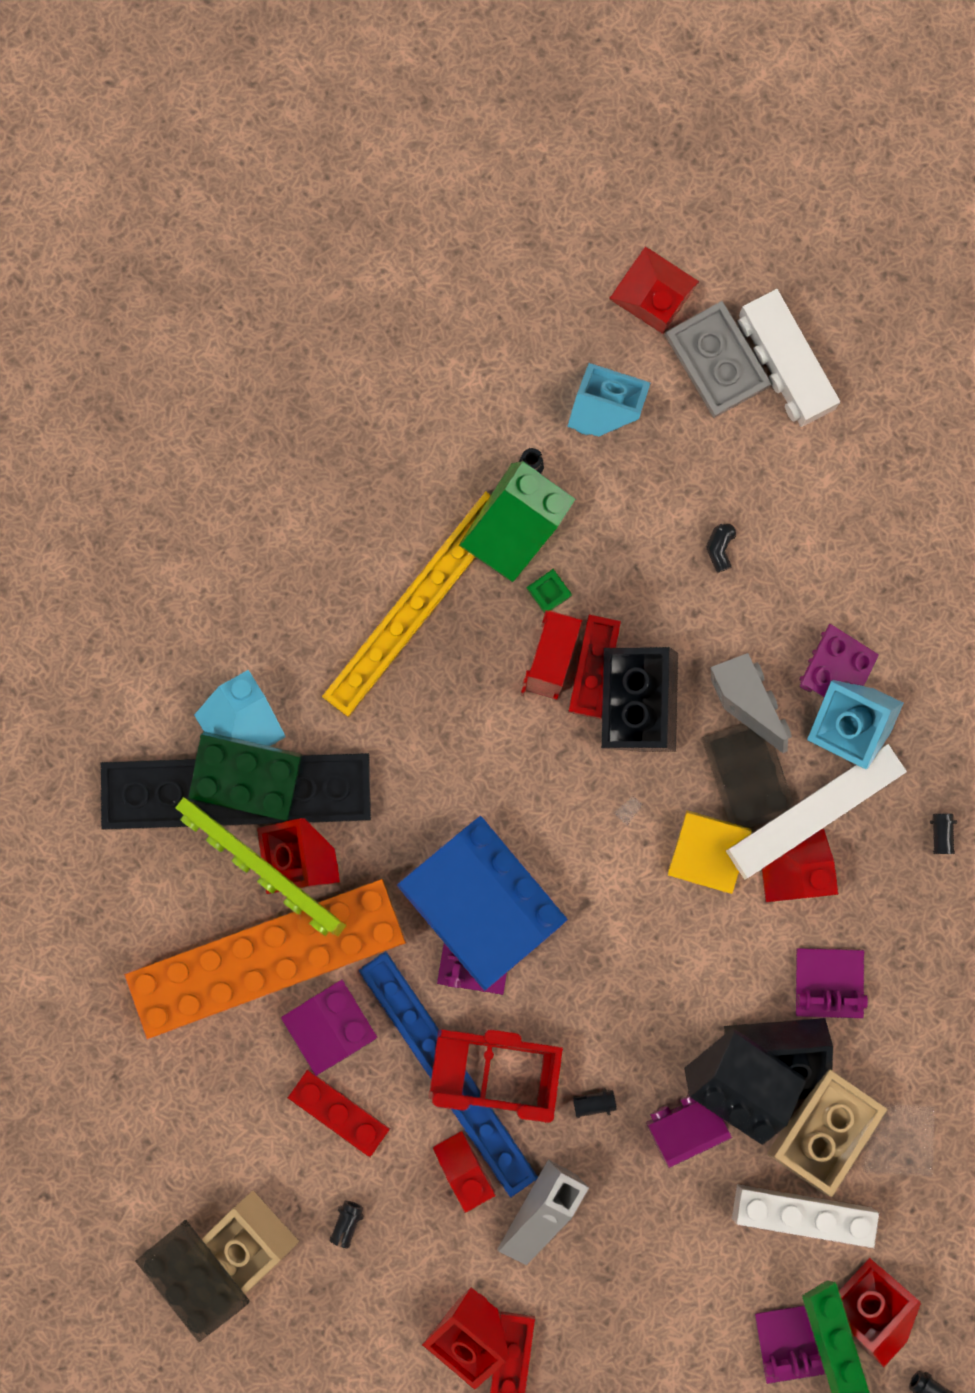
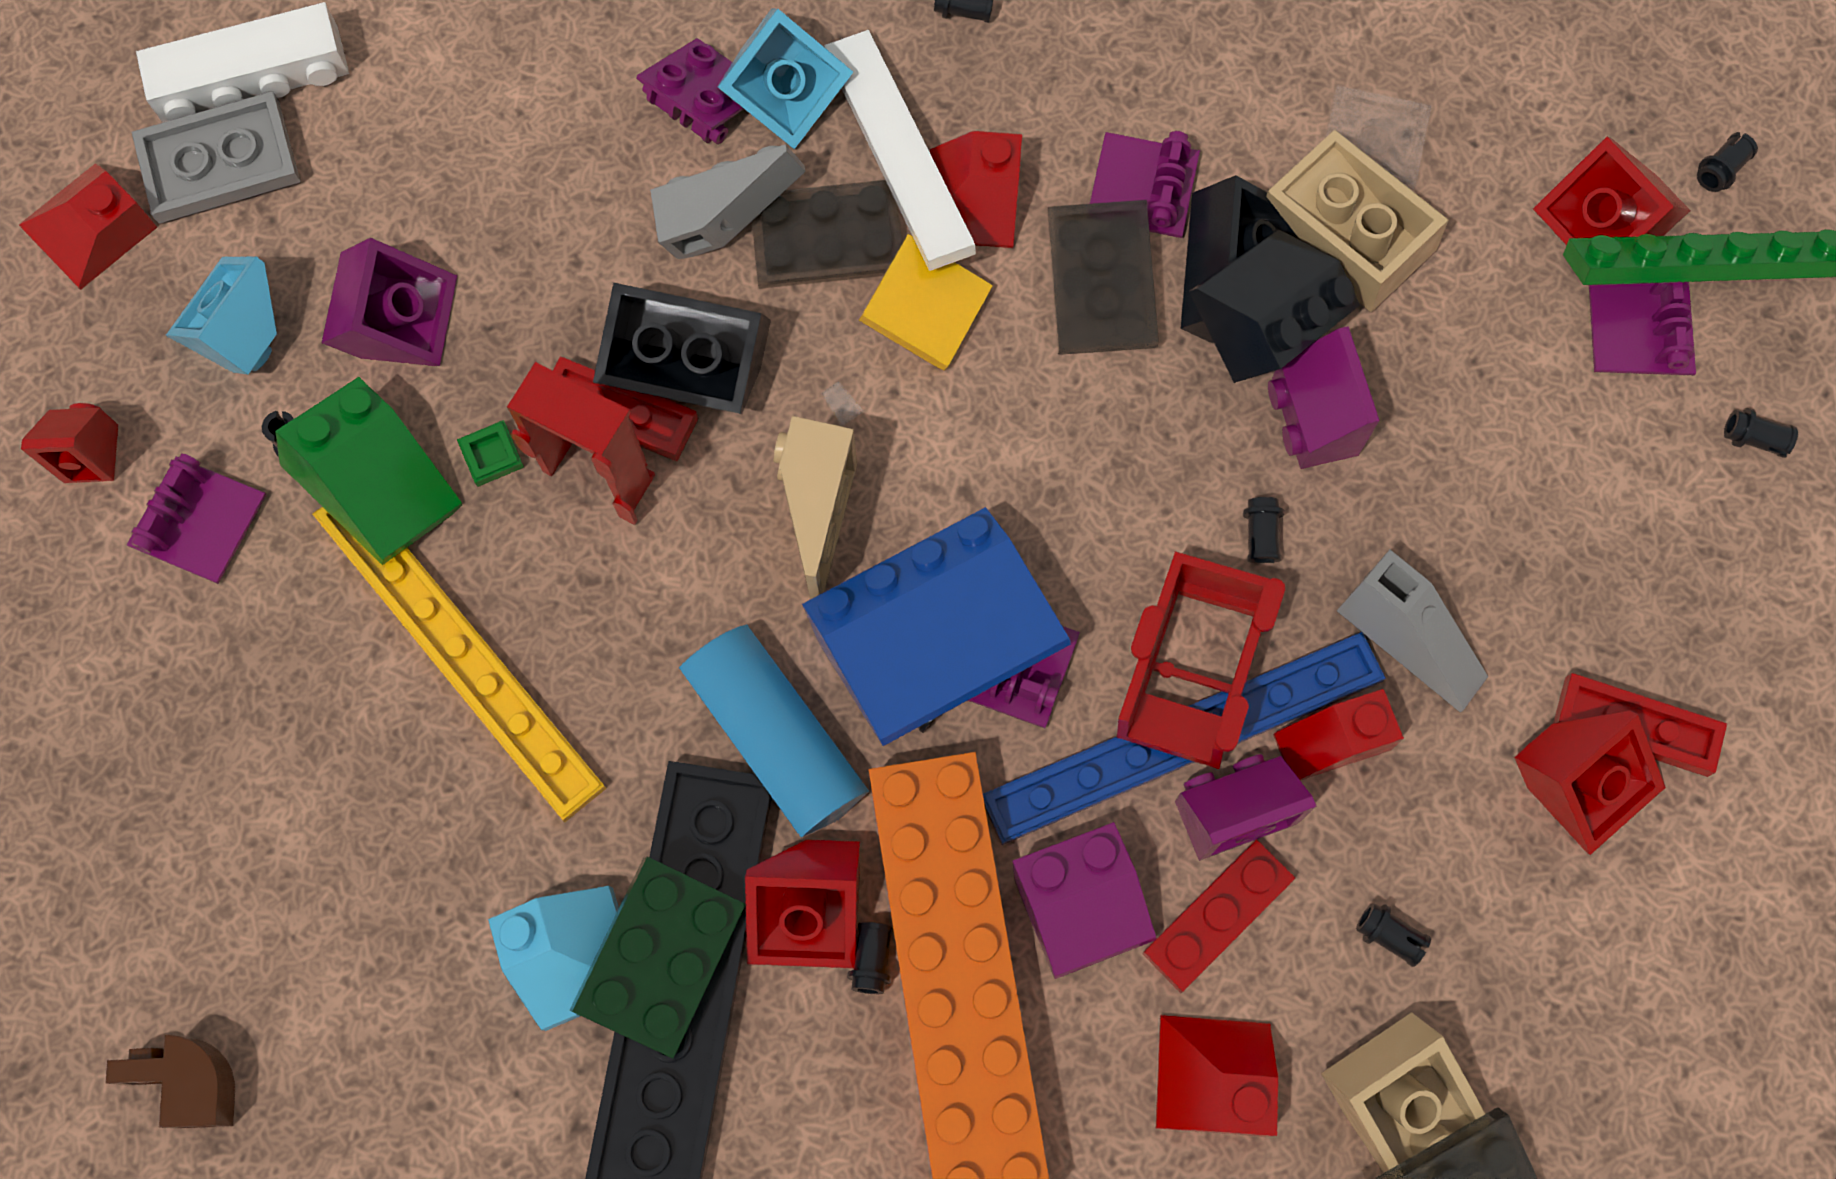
camera: 75 degrees left, 10 degrees down
(129, 521) = (193, 1077): none -> reddish brown brick
(240, 1126) = (1216, 1077): none -> red slope
(269, 904) = (871, 958): none -> black pin
(270, 877) = (792, 971): lime plate -> none
(399, 814) = (774, 730): none -> dark azure brick
(406, 1116) = (1242, 805): none -> magenta slope
(468, 419) = (196, 519): none -> magenta hinge
(500, 333) = (75, 443): none -> red slope
(558, 807) = (817, 475): none -> tan slope
(634, 502) = (389, 305): none -> magenta slope
(717, 545) = (485, 209): black arm -> none
(751, 967) = (1102, 277): none -> clear smoke plate
(805, 1216) = (1466, 273): white brick -> none

